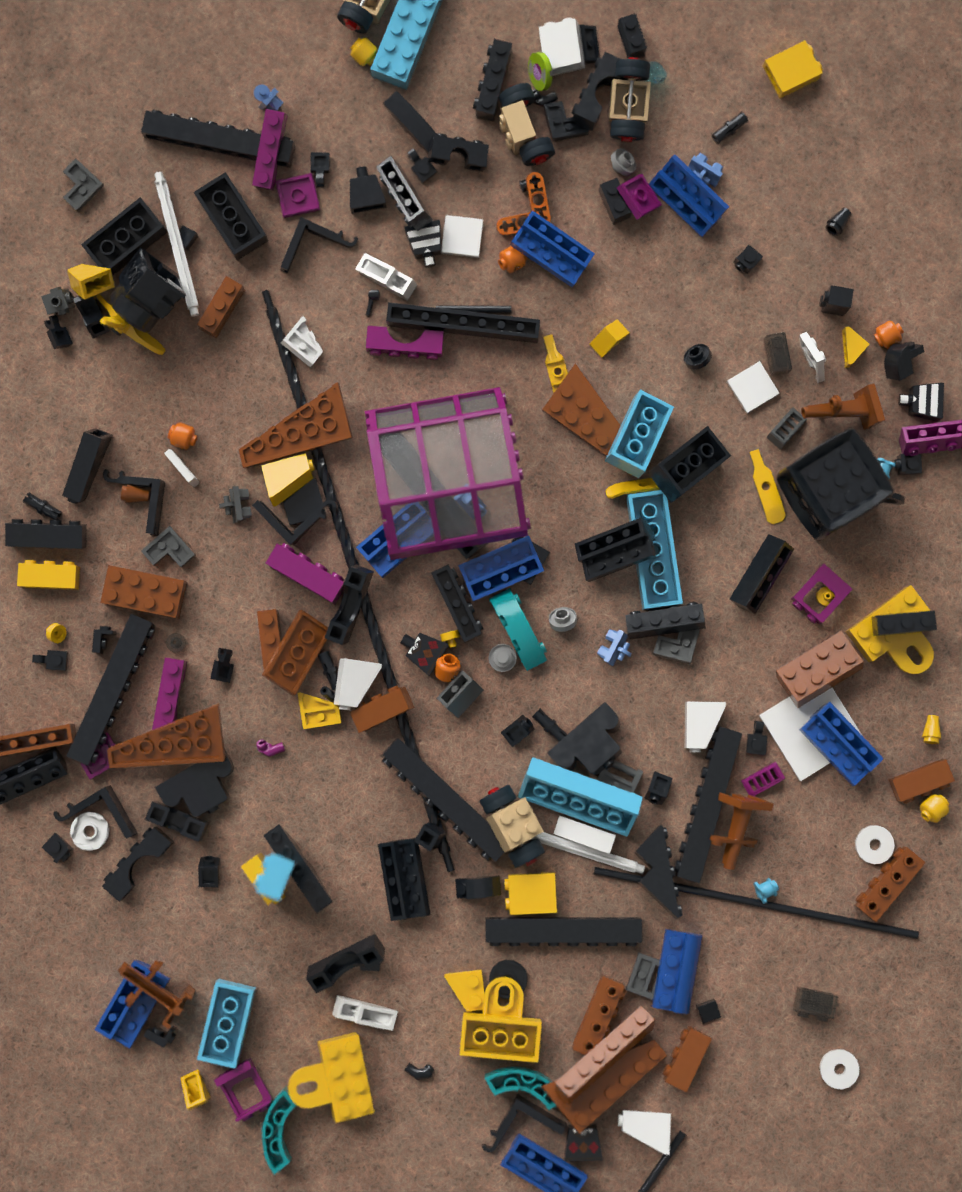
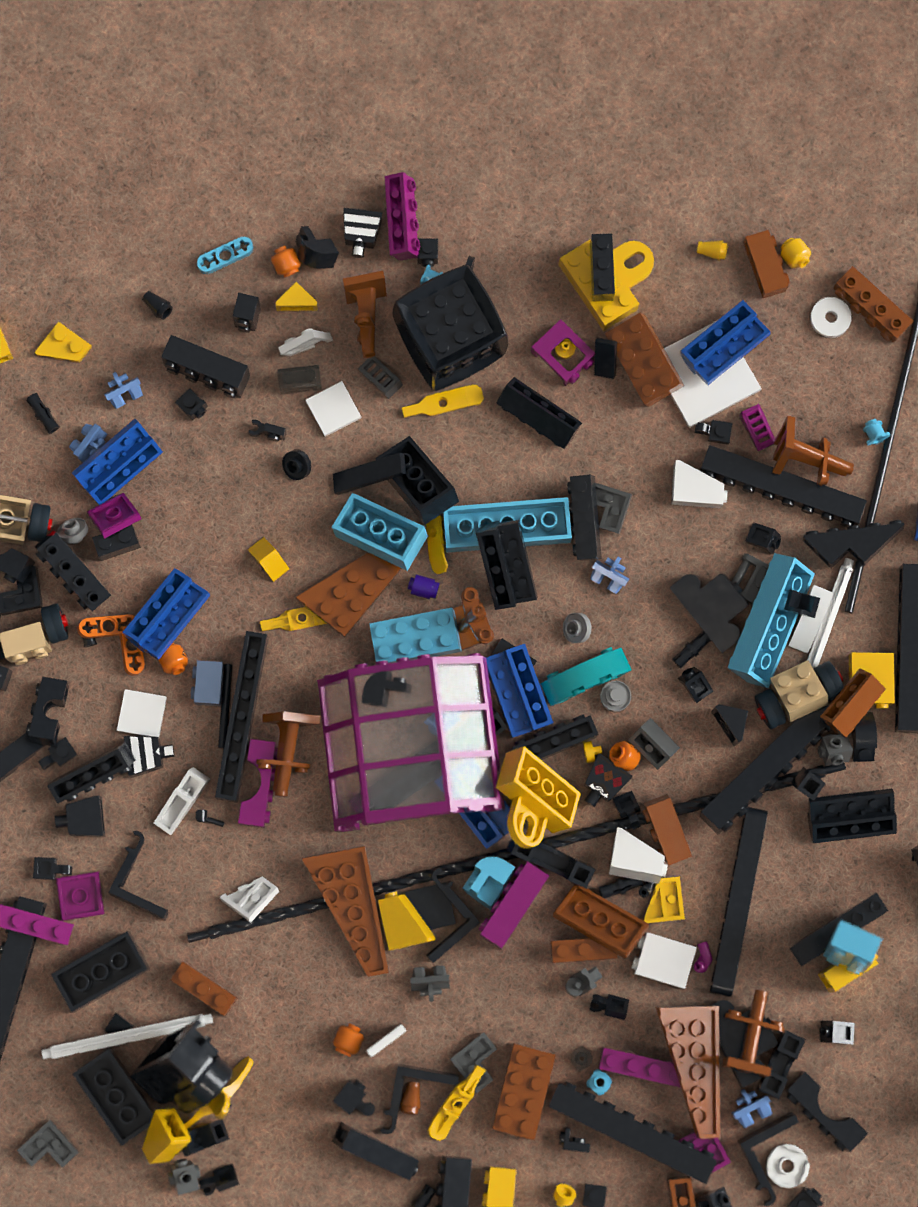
camera: 90 degrees left, 5 degrees down
(123, 527) = (448, 1112): none -> yellow piece
(129, 441) = (351, 1098): none -> black brick
(134, 789) = (743, 1113): none -> medium blue hips
(149, 659) = (591, 1083): none -> medium azure brick
(172, 788) = (754, 1023): none -> dark orange piece
(241, 638) = (582, 981): none -> dark grey hips
(265, 712) = (664, 960): none -> white brick
(322, 778) = (739, 902): none -> black beam
(327, 550) = (489, 880): none -> medium azure brick
(401, 672) = (628, 807): none -> black plate
(403, 586) = (536, 796): none -> yellow brick
(437, 363) = (288, 726): none -> dark orange piece
(464, 861) = (835, 749): none -> dark grey brick
(484, 764) = (731, 721): none -> black slope
(490, 434) = (378, 686): none -> black brick
(492, 291) = (208, 683): none -> sand blue brick
(506, 874) = (853, 702): none -> dark orange brick
(544, 473) = (416, 635): none -> medium azure brick
(561, 520) = (472, 620): none -> dark orange piece
(585, 162) = (72, 570): none -> black brick
(592, 478) = (423, 587): none -> dark purple brick
(596, 824) = (802, 603): none -> black panel
(692, 420) = (369, 473): none -> black tile
(727, 332) = (272, 431): none -> black plate
(751, 190) = (131, 386): none -> medium blue hips
(783, 266) = (205, 366): none -> black brick
(794, 141) = (63, 345): none -> yellow wing
(818, 632) = (605, 358): none -> black tile
(892, 294) = (226, 247): none -> medium azure beam

